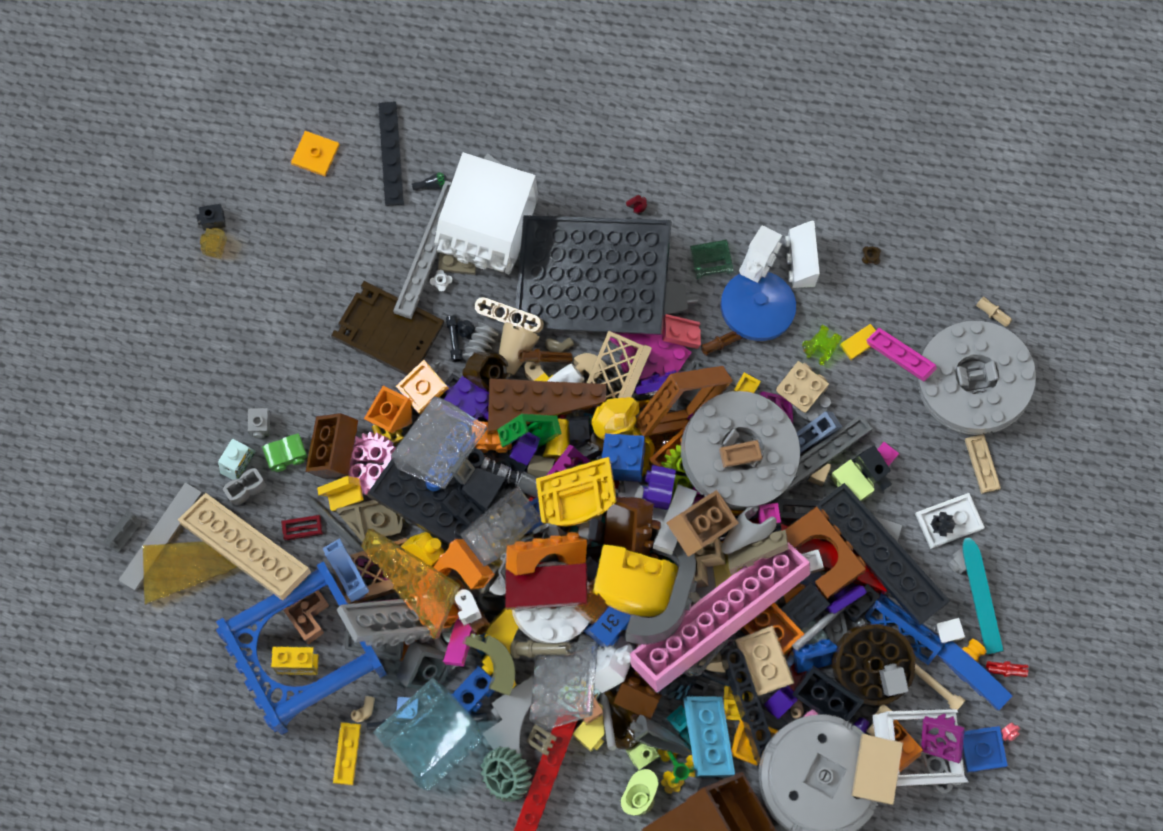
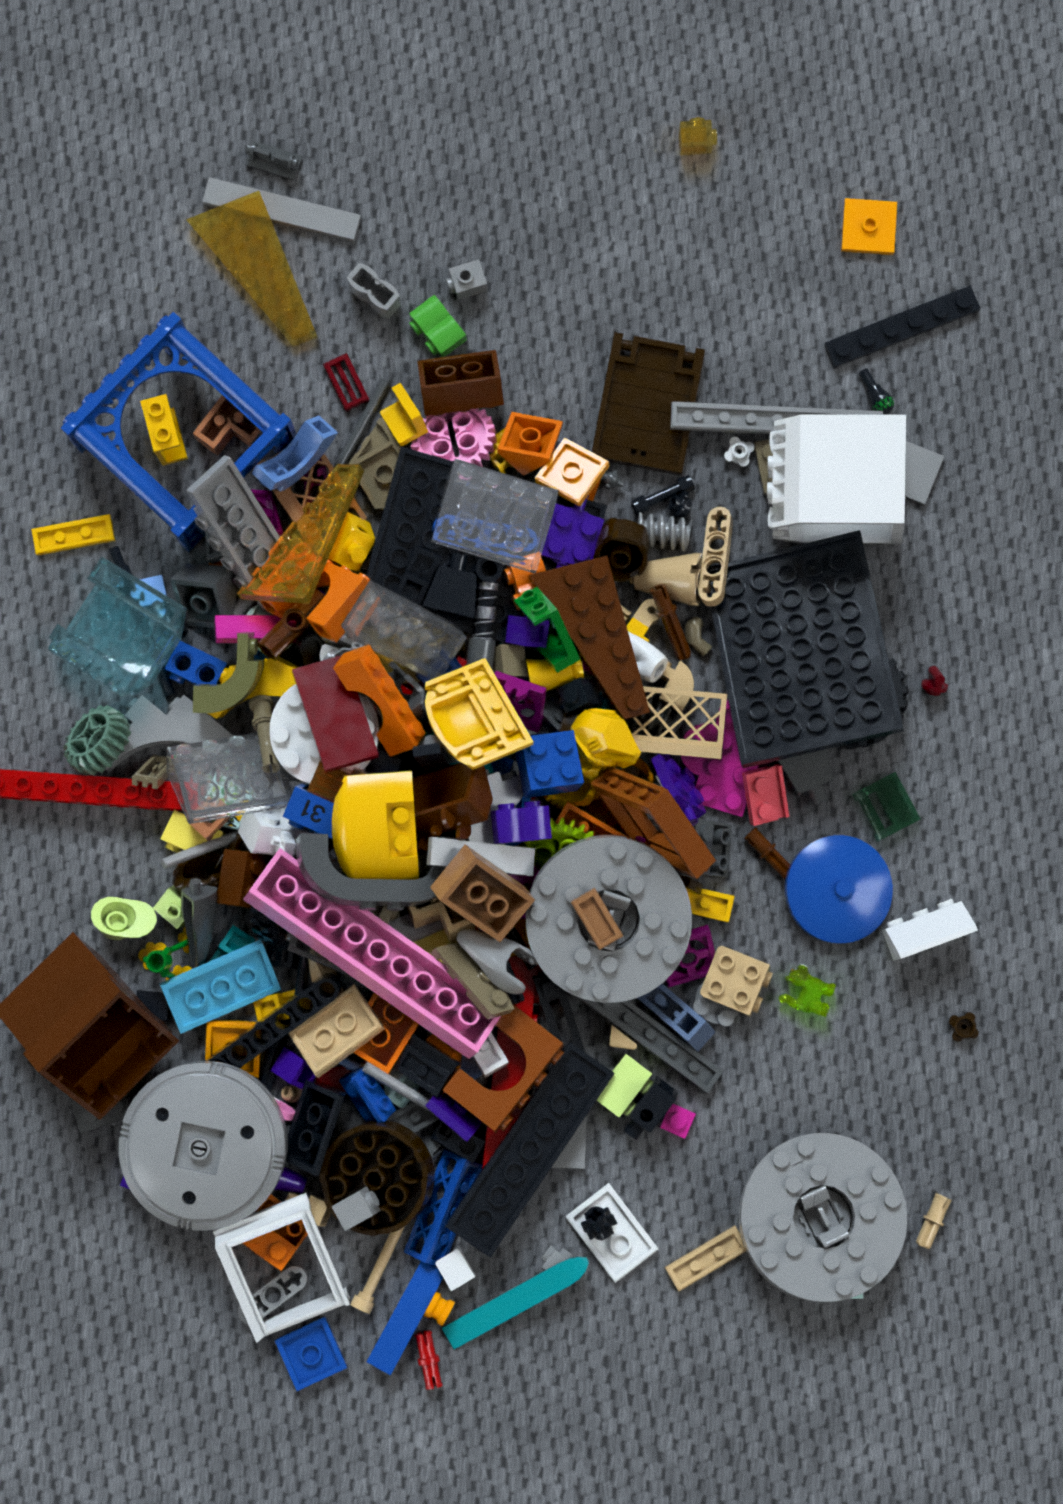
camera: 75 degrees right, 10 degrees up
(211, 217) = (731, 121): black brick -> none
(236, 459) = (409, 267): light aqua torso -> none
(244, 546) = (288, 315): tan plate -> none
(364, 712) = (131, 539): tan arm -> none
(462, 470) = (464, 558): dark grey tile -> none
(468, 607) = (286, 623): white leg -> none
(761, 254) = (908, 871): white hinge -> none
(767, 511) = (535, 982): dark pink plate -> none
(857, 343) = (831, 1045): yellow tile -> none
(877, 769) = (227, 1215): tan tile -> none
(901, 354) = (822, 1104): dark pink plate -> none
(939, 749) = (291, 1296): magenta piece -> none
(1010, 732) = (343, 1384): coral plate -> none

